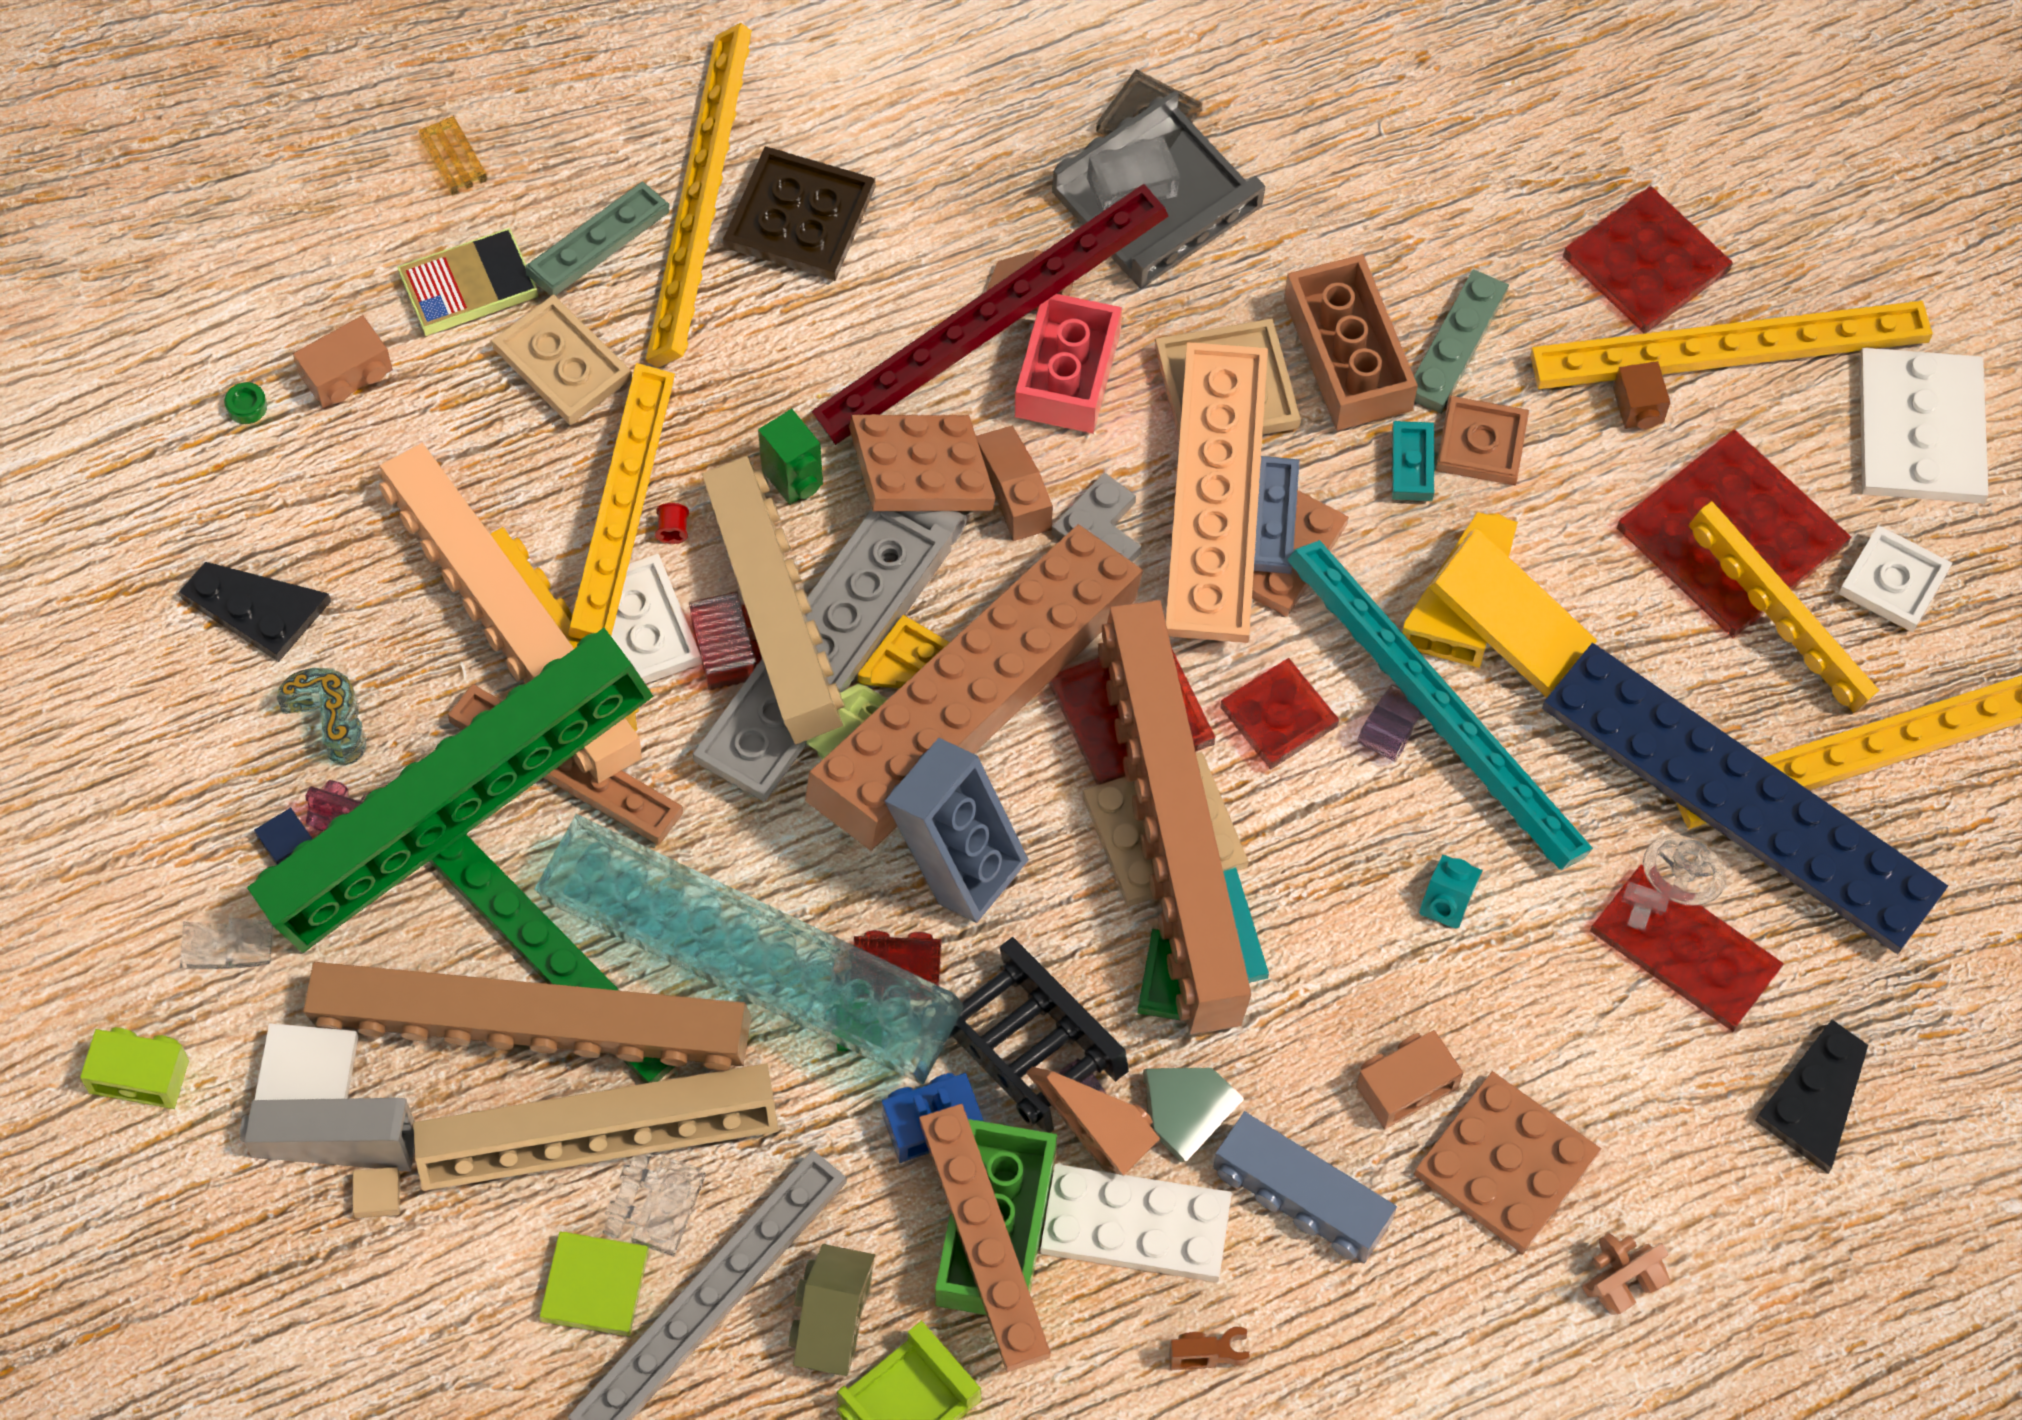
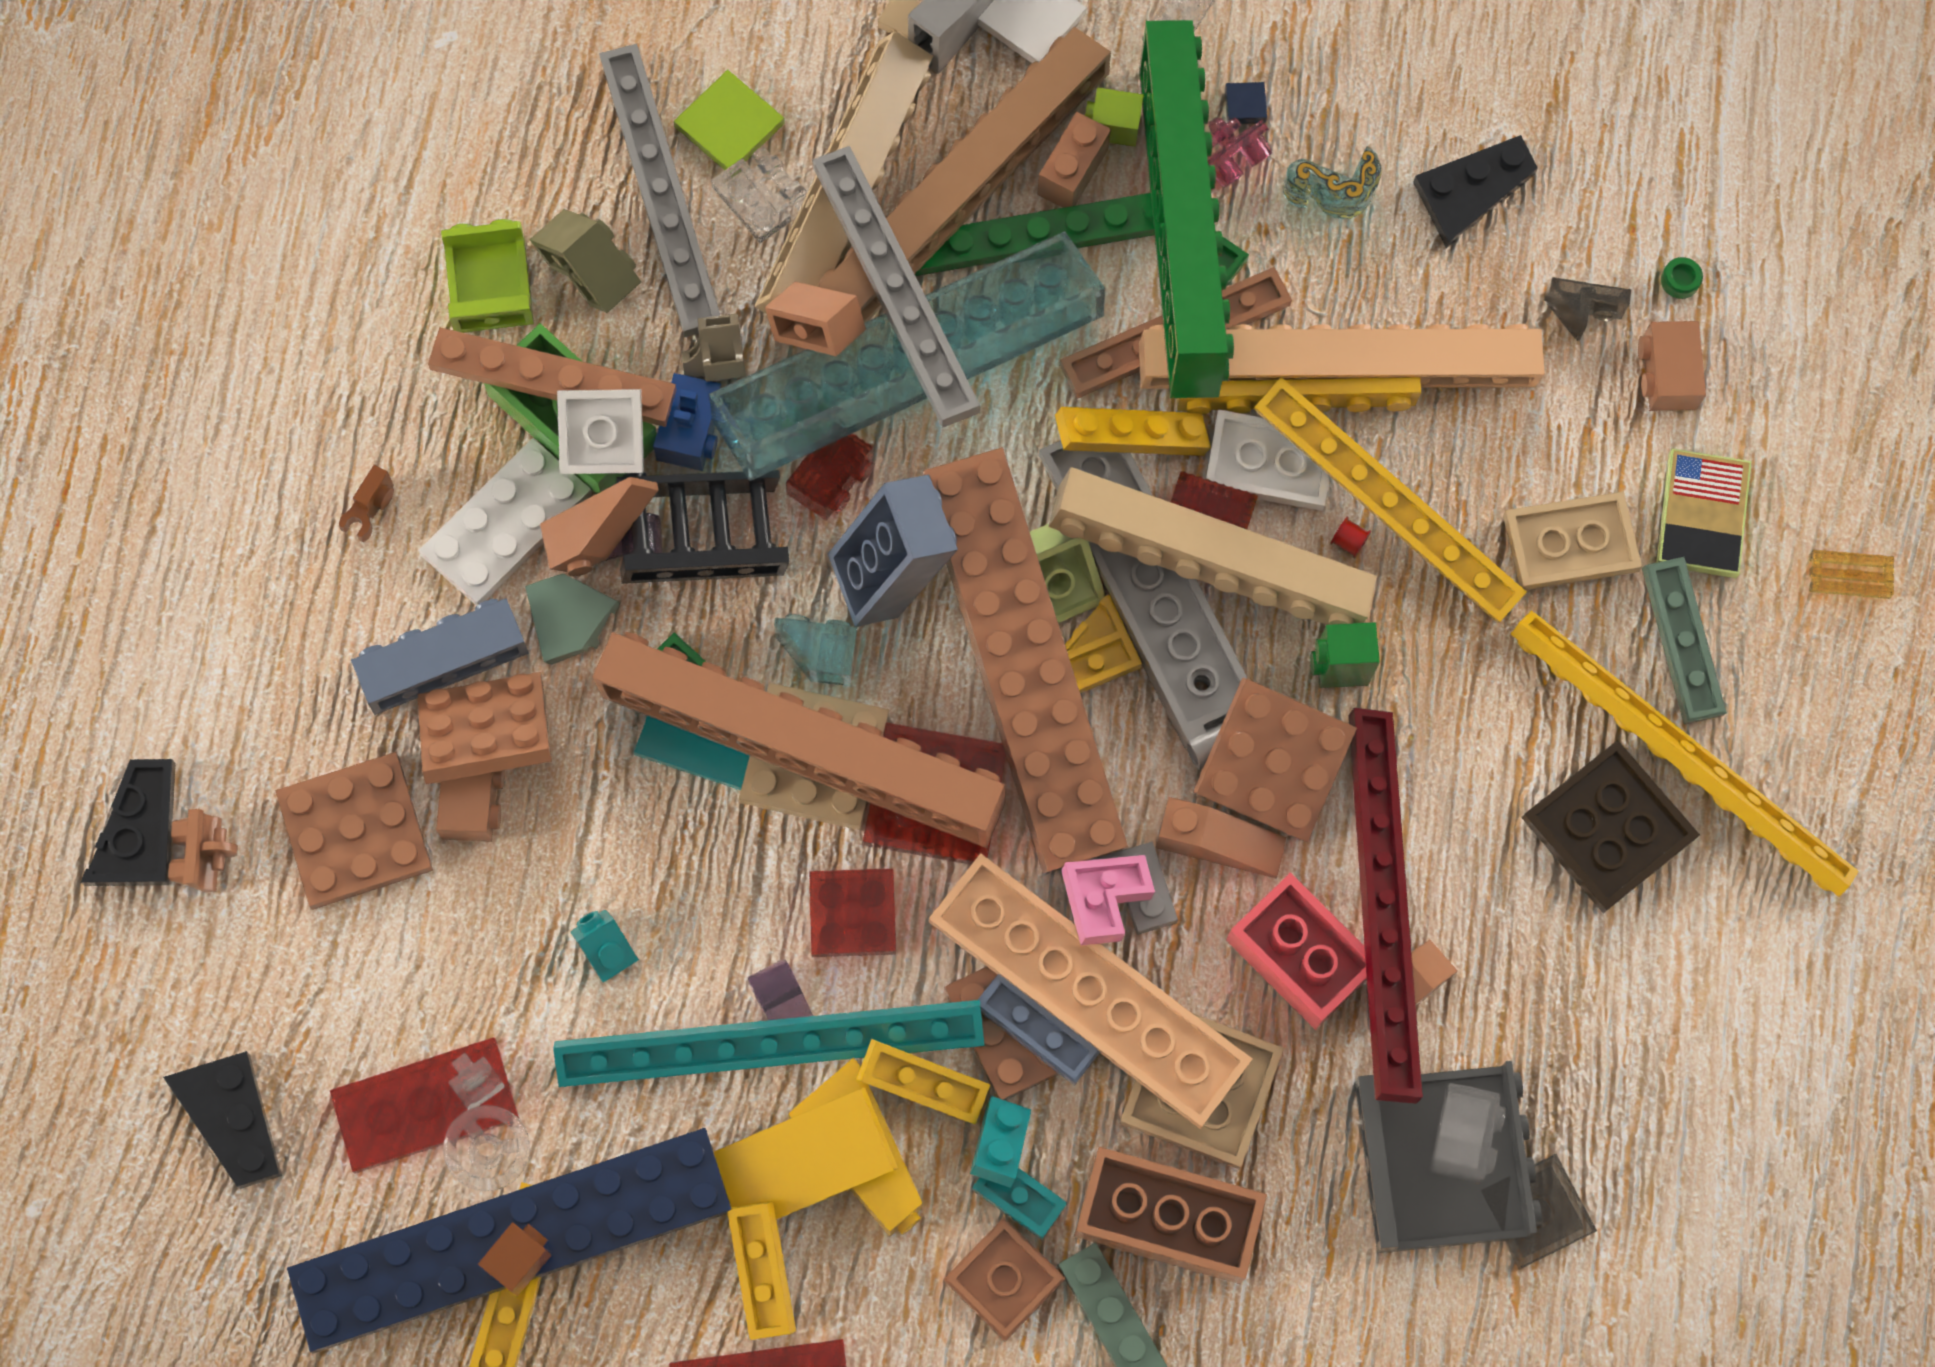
camera: 120 degrees right, 10 degrees up
(329, 460) = (1575, 300): none -> clear smoke slope
(373, 933) = (1118, 112): none -> lime brick
(446, 939) = (1073, 161): none -> nougat brick
(696, 978) = (896, 287): none -> light grey plate
(698, 729) = (1132, 431): none -> yellow plate
(774, 1028) = (815, 318): none -> nougat brick
(850, 1129) = (717, 350): none -> dark tan brick
(1014, 1145) = (600, 431): none -> white plate
(1070, 872) = (819, 649): none -> clear light blue slope
(1135, 524) = (1097, 887): none -> bright pink plate
(1346, 1091) = (483, 728): none -> nougat plate
(1381, 570) = (923, 1081): none -> yellow plate
(1383, 491) = (1000, 1141): none -> teal plate
(1617, 601) = (761, 1270): none -> yellow plate
(1647, 1344) = (138, 832): none -> black wing
(1761, 760) = (516, 1257): none -> dark orange brick

